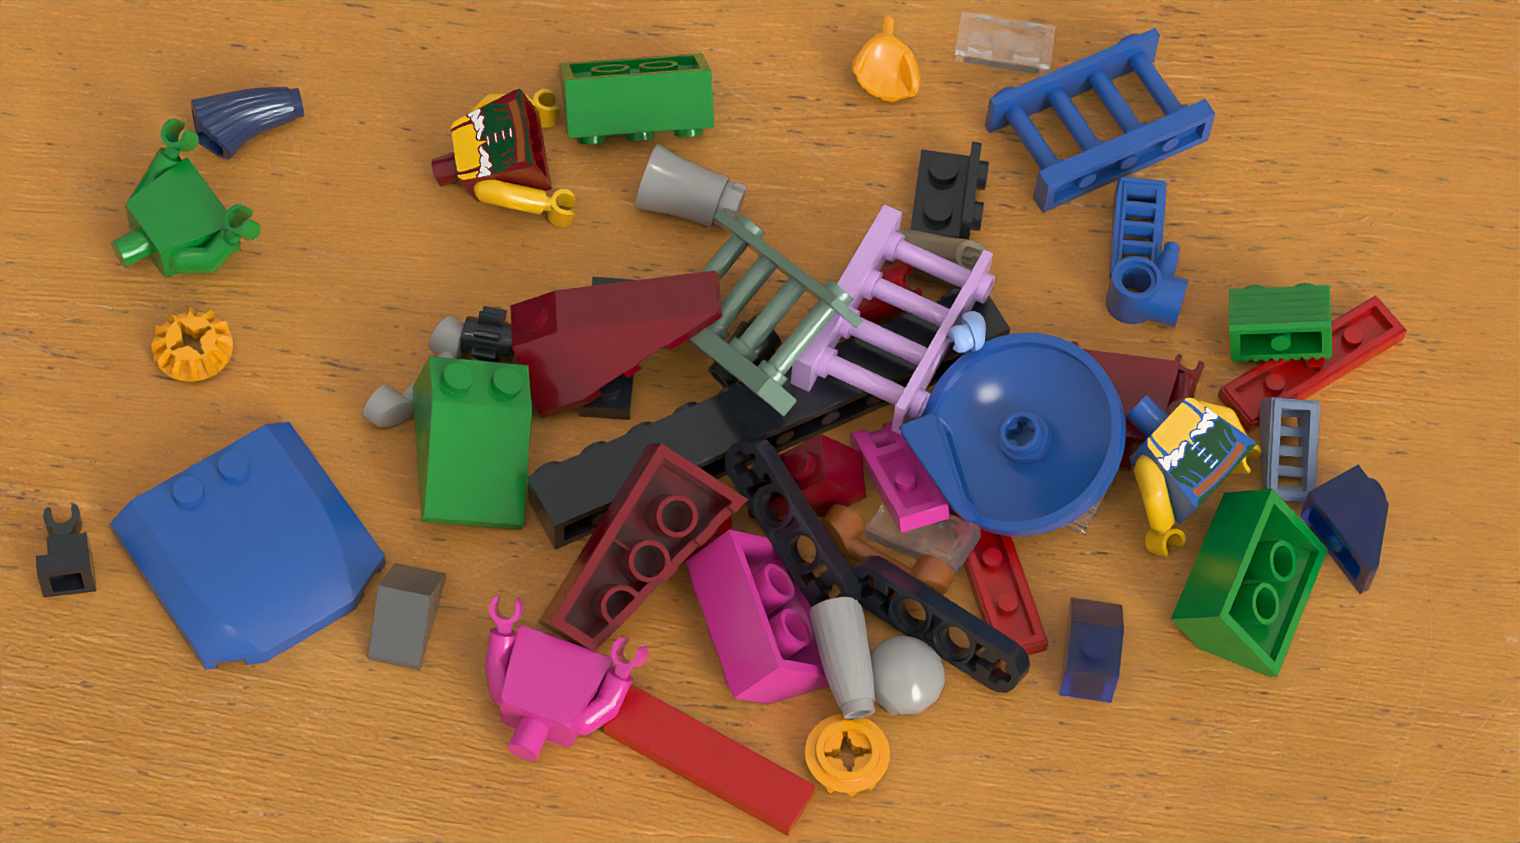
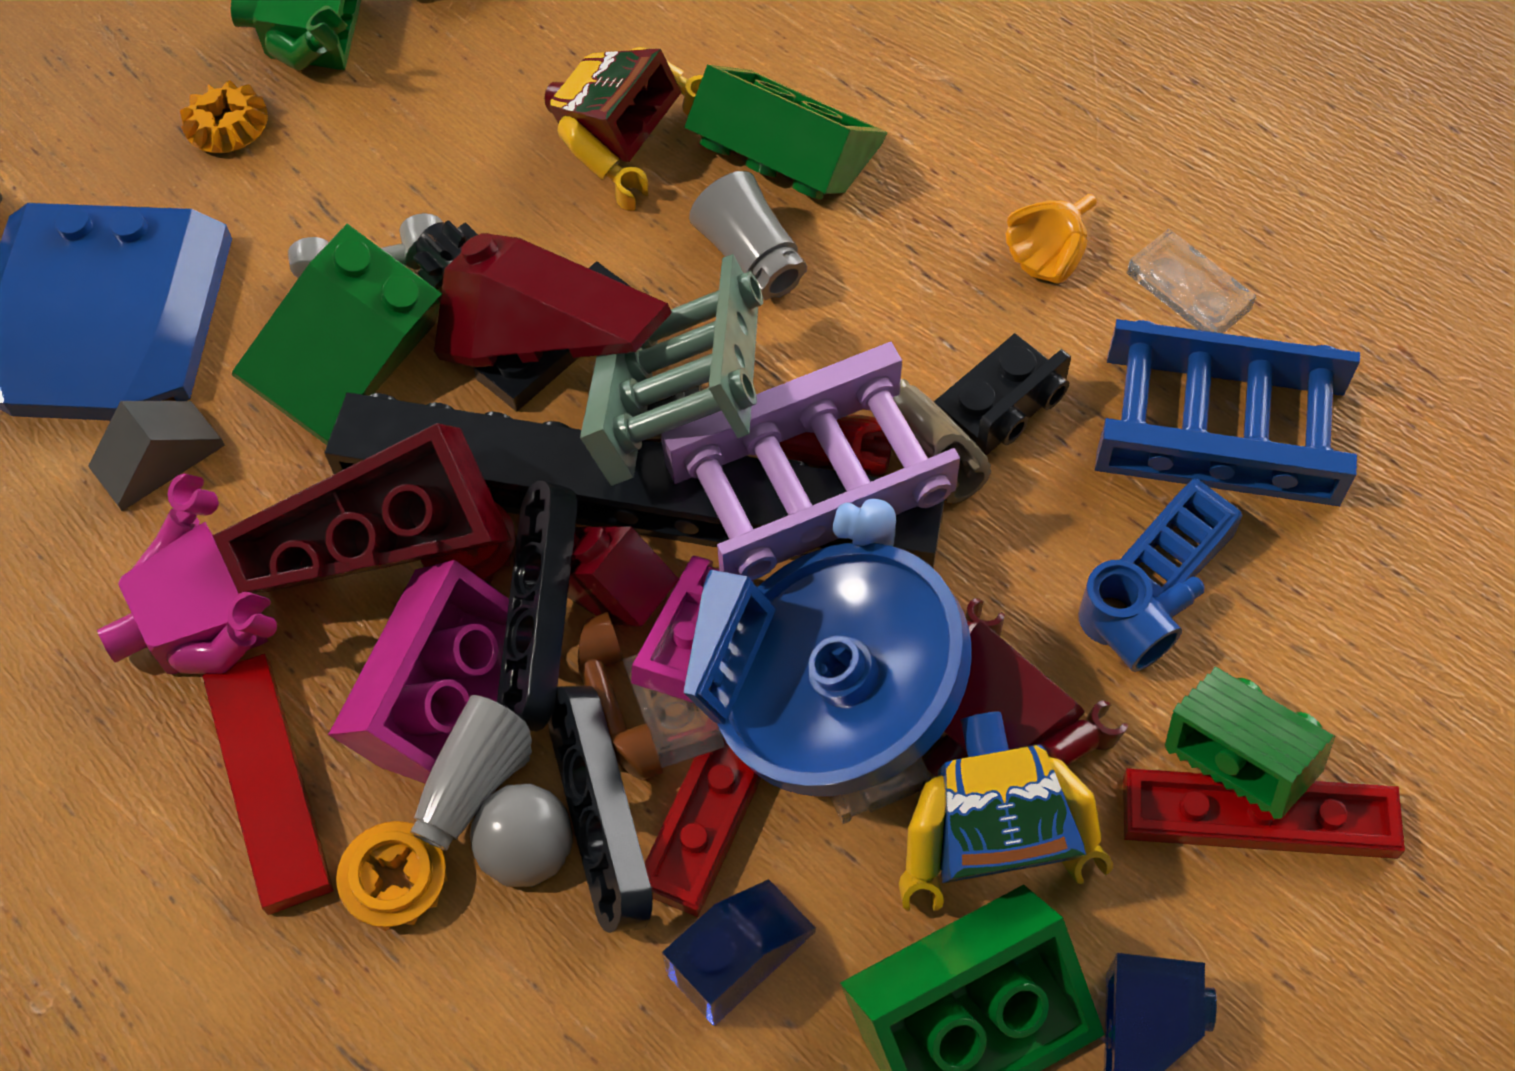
camera: 45 degrees right, 0 degrees up
(1307, 432) = (1184, 883): sand blue slope -> none

